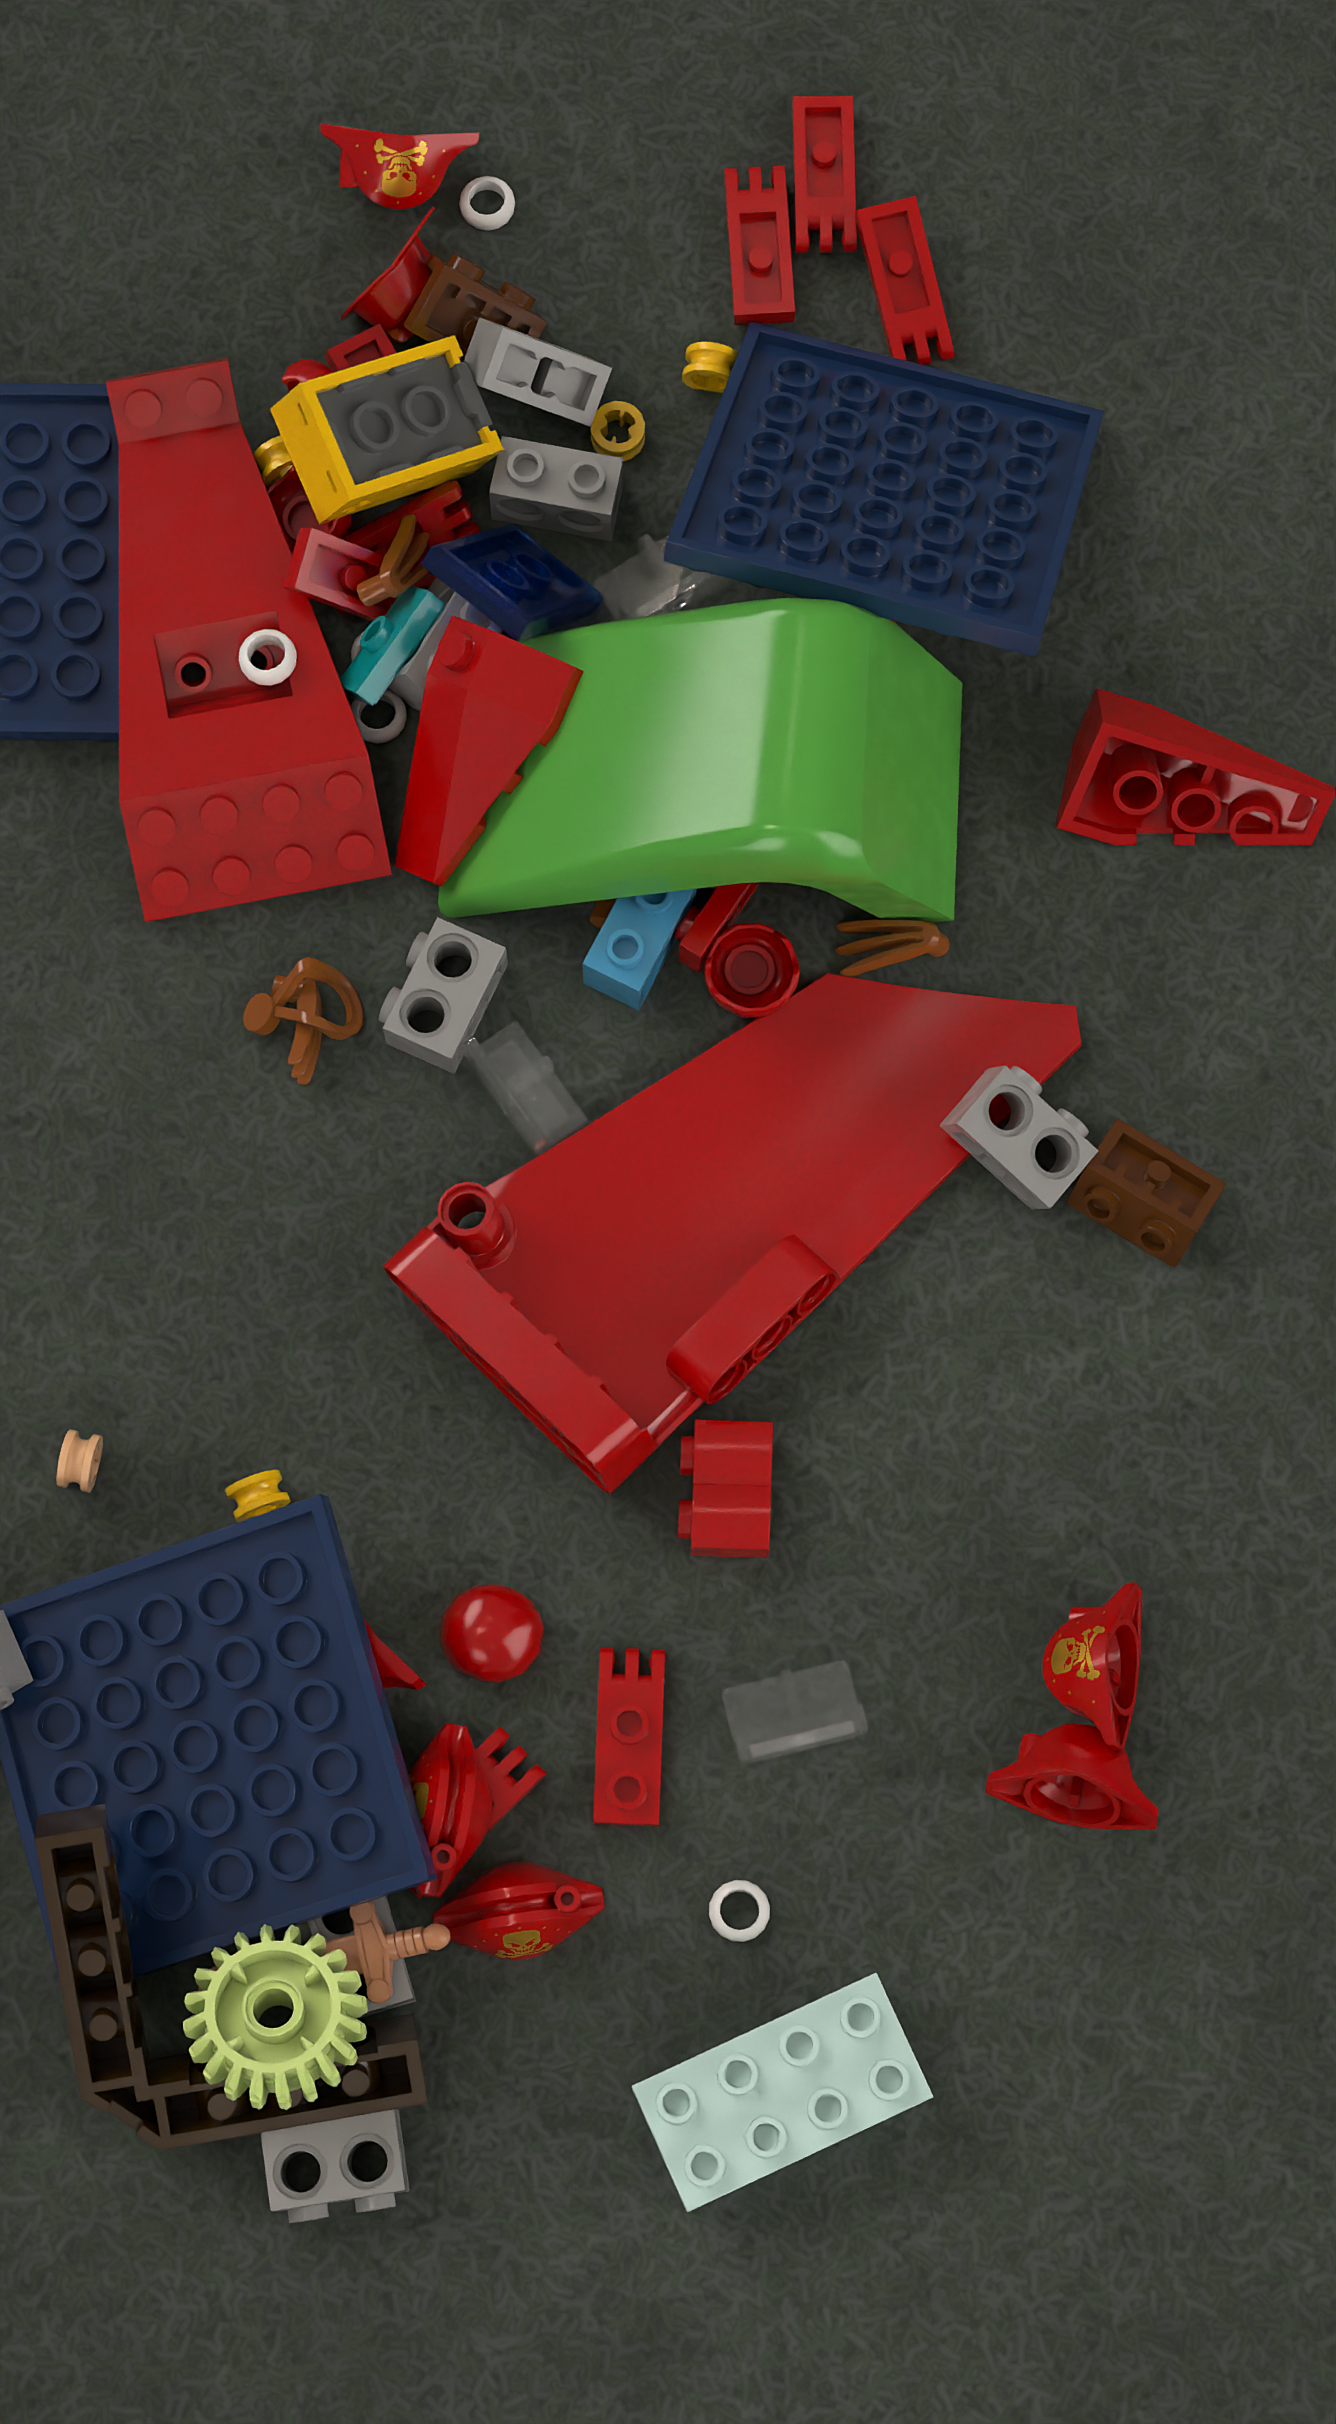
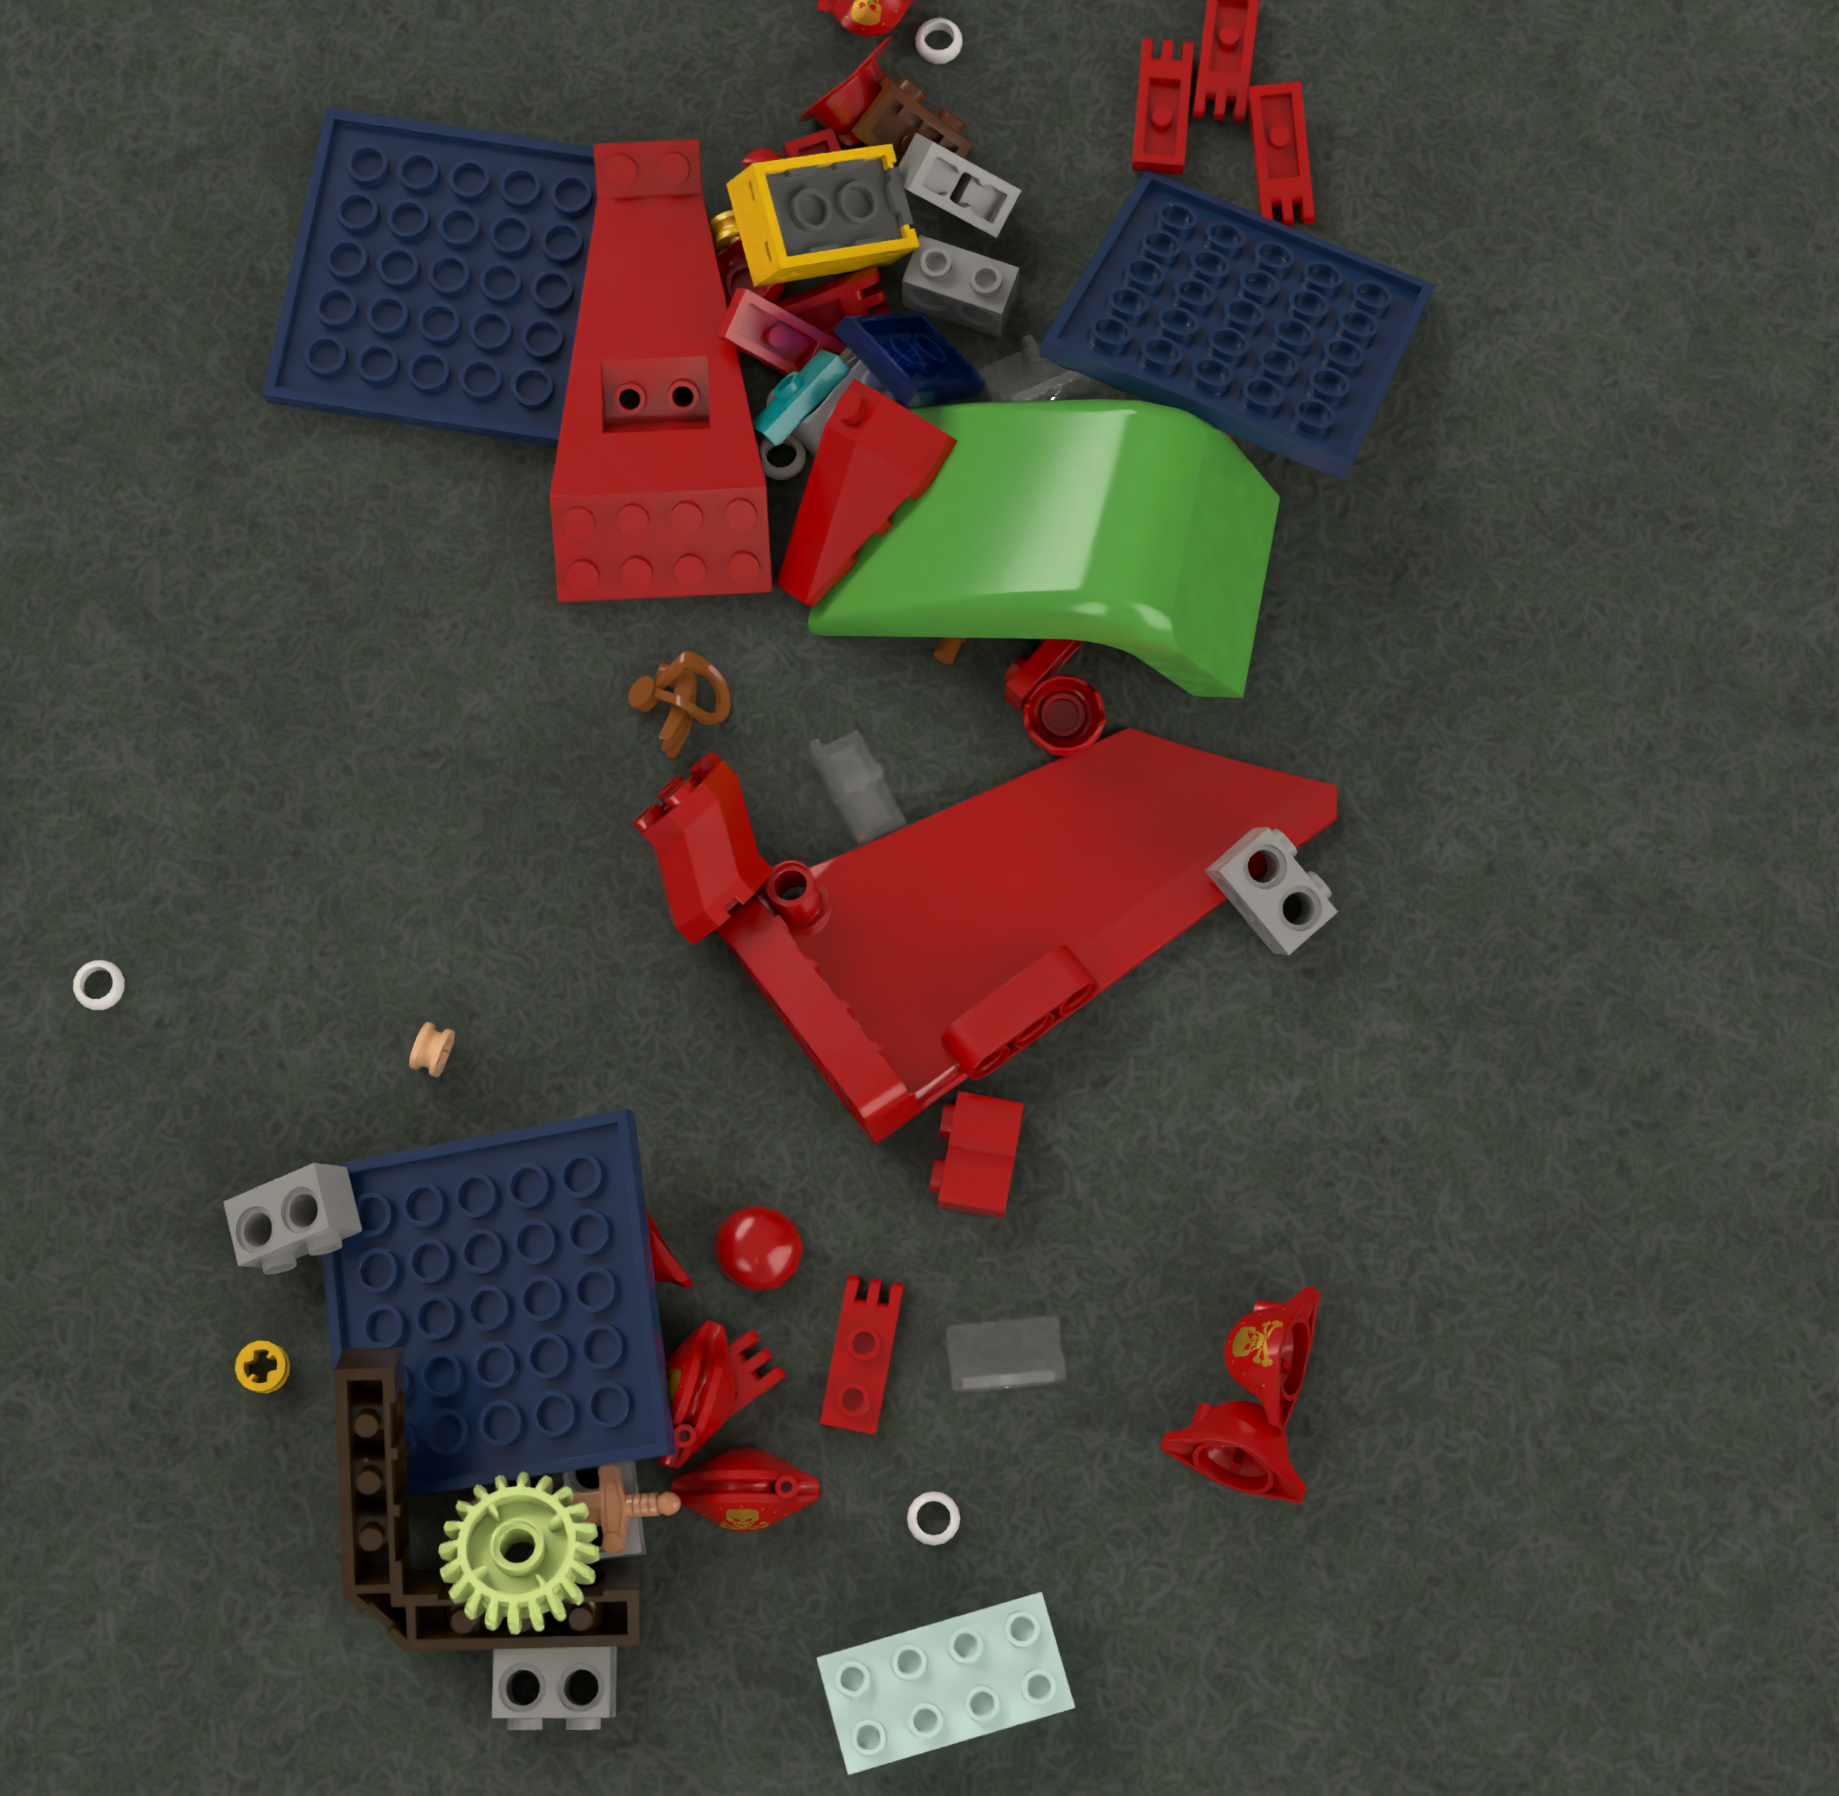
camera: 10 degrees right, 0 degrees up
(257, 1494) = (577, 1100): yellow bush -> none
(263, 638) = (693, 376): white piece -> none
(359, 1181) = (703, 847): none -> red brick
(396, 565) = (811, 335): dark orange piece -> none
(456, 999) = (812, 705): light grey brick -> none
(624, 413) = (1027, 231): yellow bush -> none
(635, 944) = (969, 679): dark azure brick -> none
(709, 366) = (1103, 201): yellow bush -> none
(907, 941) = (1200, 709): dark orange piece -> none
(1145, 1193) = (1373, 953): reddish brown bracket -> none
(1162, 774) = (1442, 600): red wedge -> none

